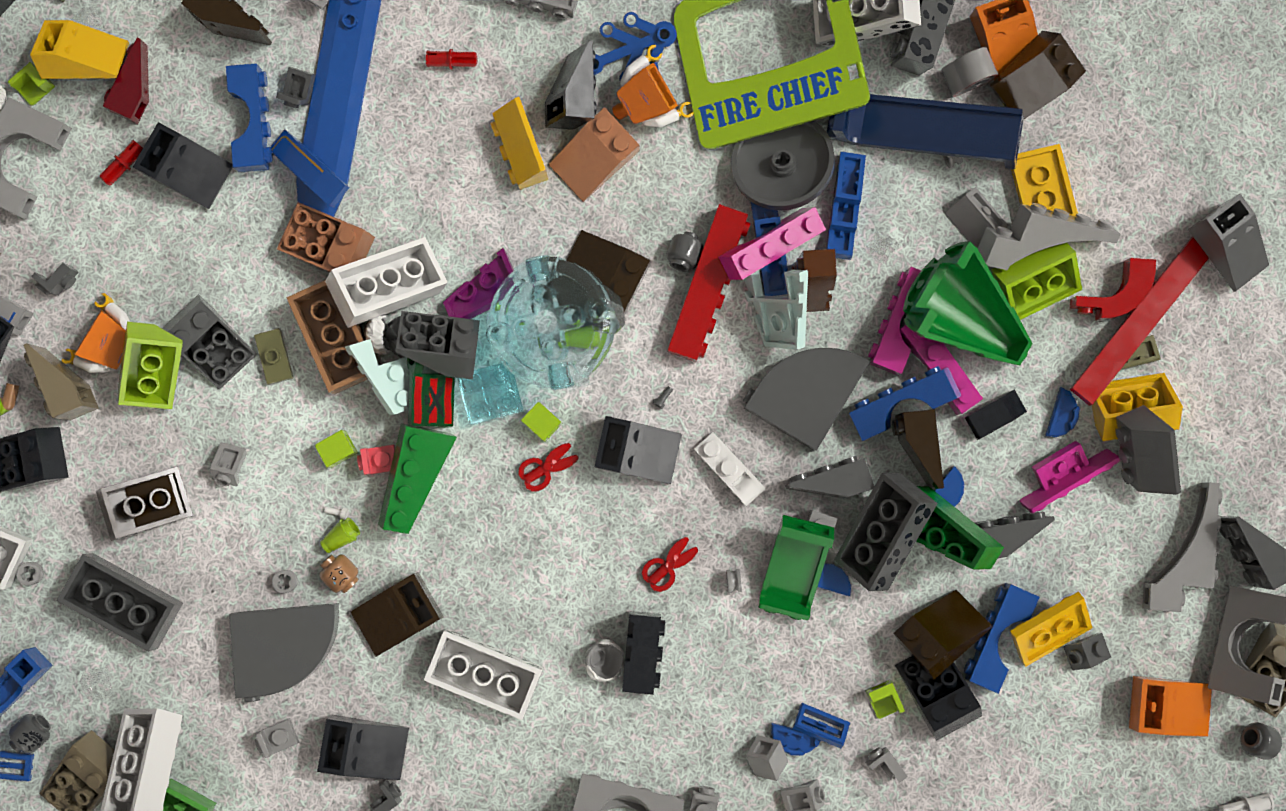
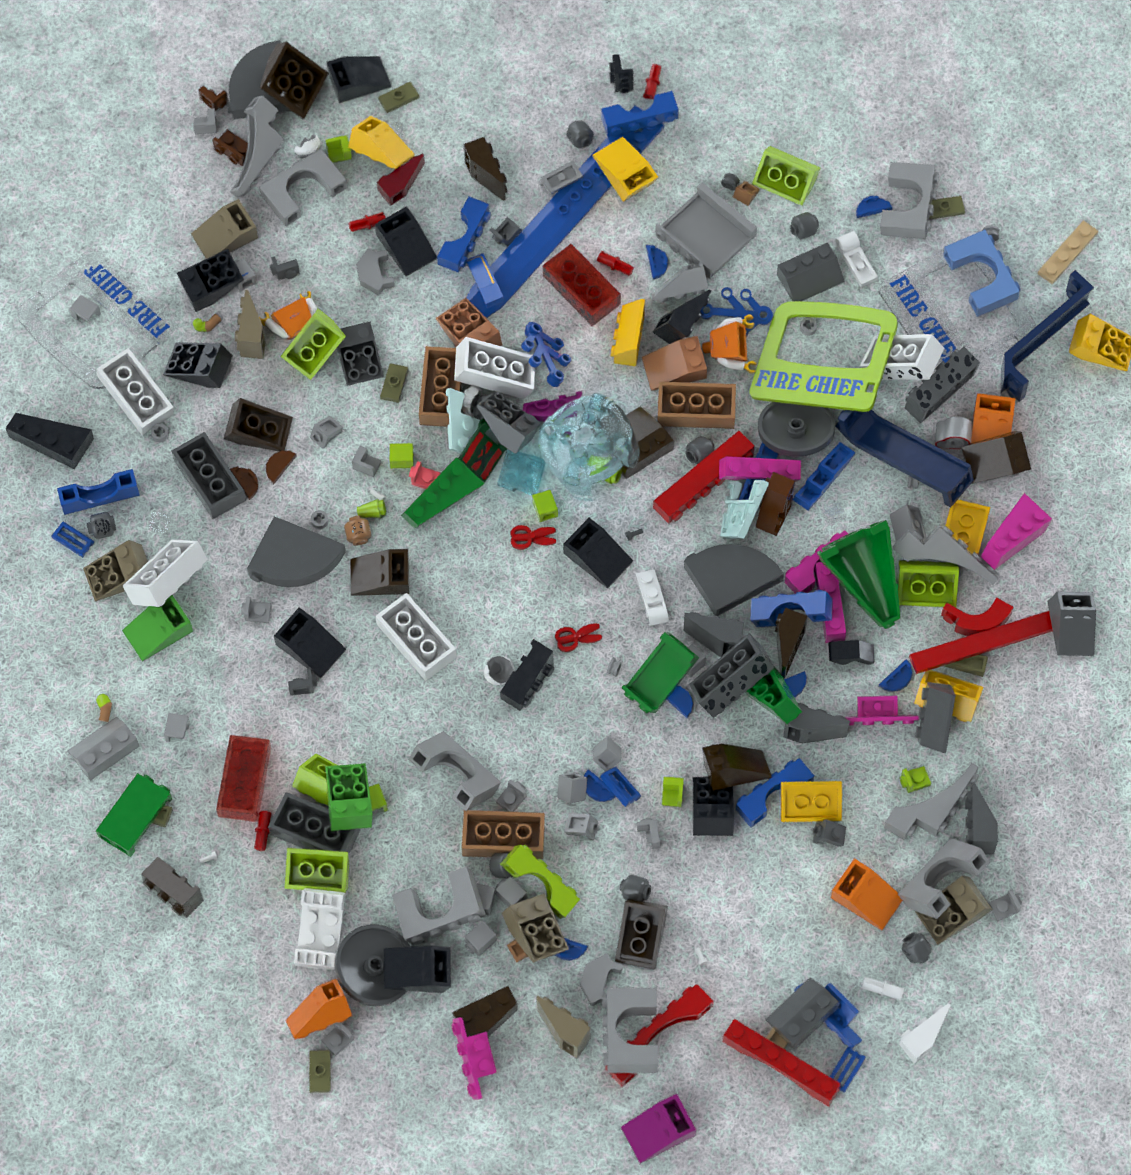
camera: 30 degrees right, 20 degrees down
(162, 227) = (370, 273): none -> light grey piece
(170, 577) = (247, 480): none -> reddish brown tile
(195, 537) = (278, 464): none -> reddish brown tile
(298, 478) = (364, 463): none -> light grey panel
(407, 204) = (534, 332): none -> blue plant
(427, 110) = (581, 285): none -> clear red brick
(499, 28) = (657, 260): none -> blue tile
(550, 45) = (686, 280): none -> light grey slope
(650, 196) = (696, 405): none -> medium nougat brick
(722, 27) = (812, 323): none -> light grey bush
(784, 694) = (607, 754): none -> light grey panel
(1111, 155) = (1017, 531): none -> dark pink wedge
(1148, 531) = (914, 779): none -> lime bracket

